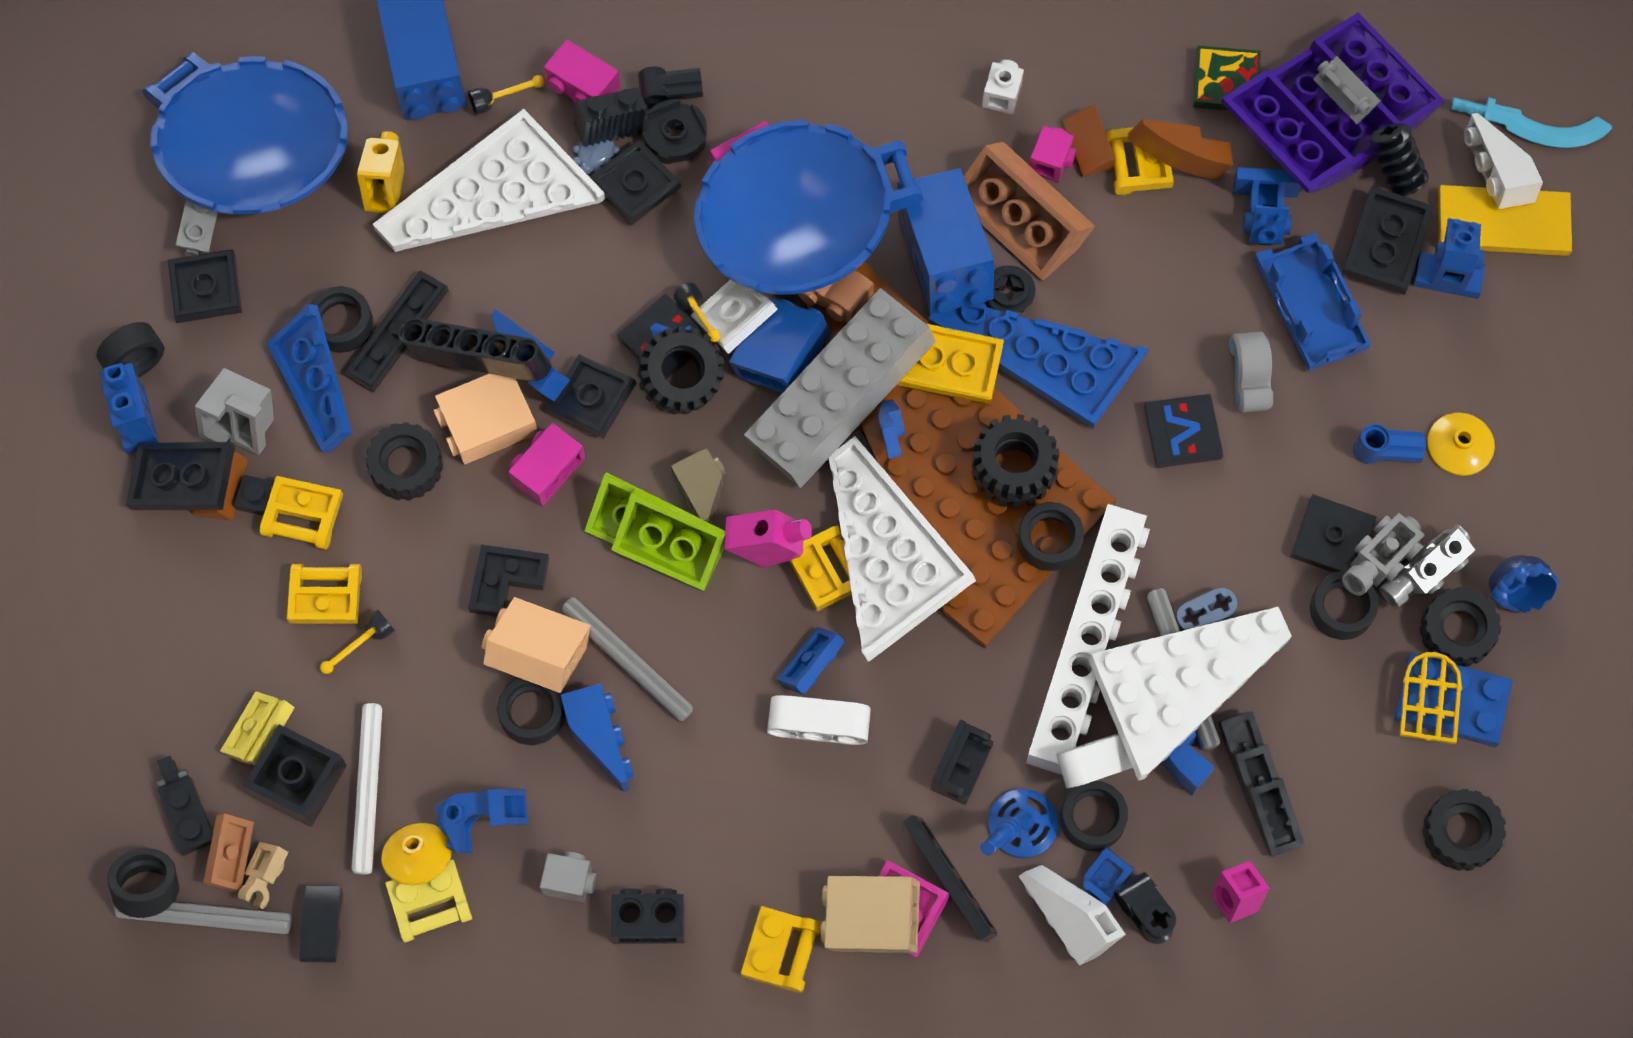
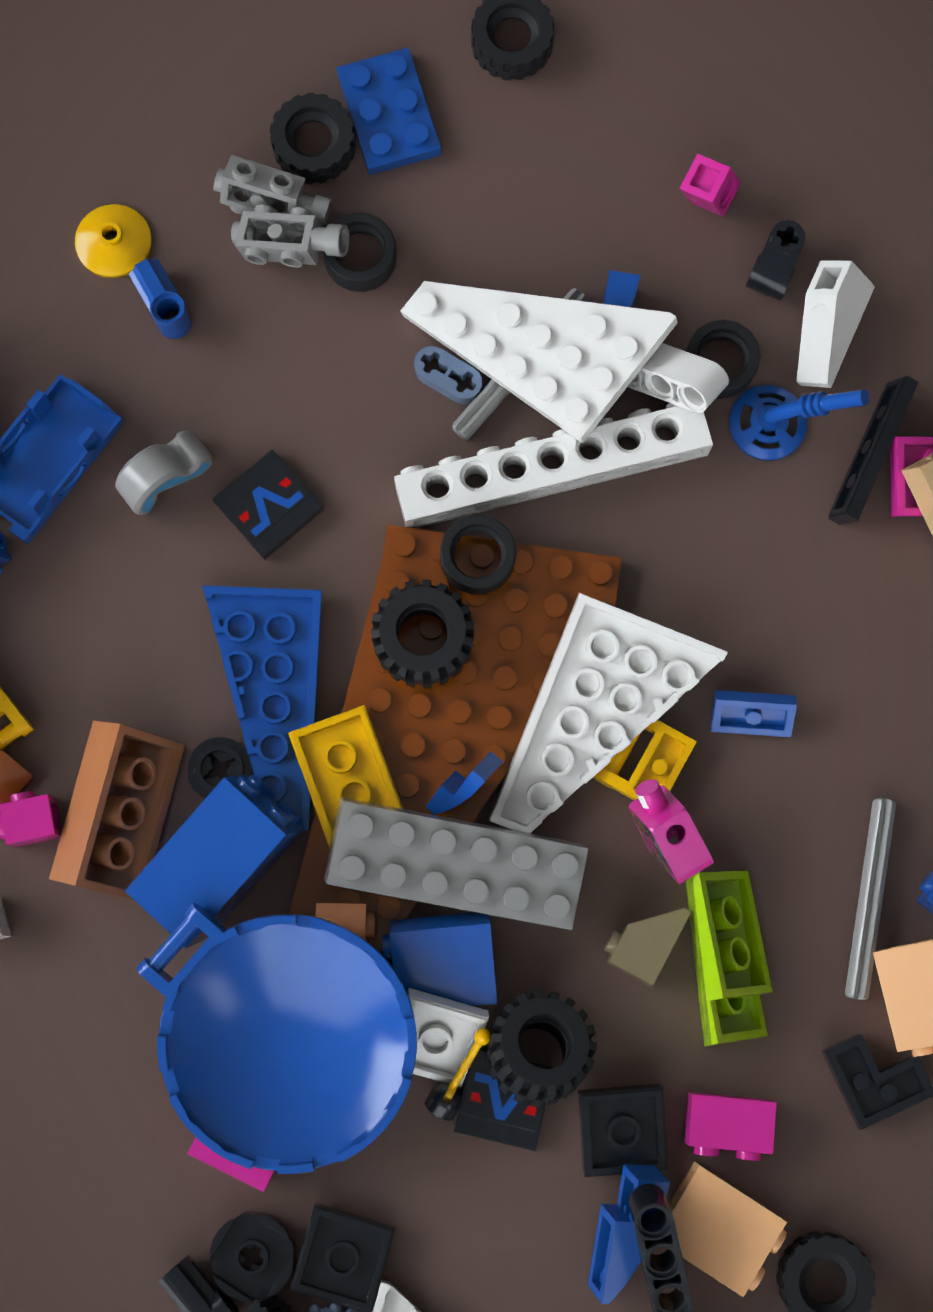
camera: 125 degrees left, 10 degrees up
(819, 720) = (806, 667): white beam -> none
(962, 762) = (755, 510): black hinge -> none
(1106, 876) = (771, 317): blue slope -> none
(1261, 784) = (587, 231): black slope -> none
(1331, 534) = (291, 303): black plate -> none
(1438, 709) = (414, 109): yellow window -> none
(1522, 584) = (232, 104): blue hair -> none

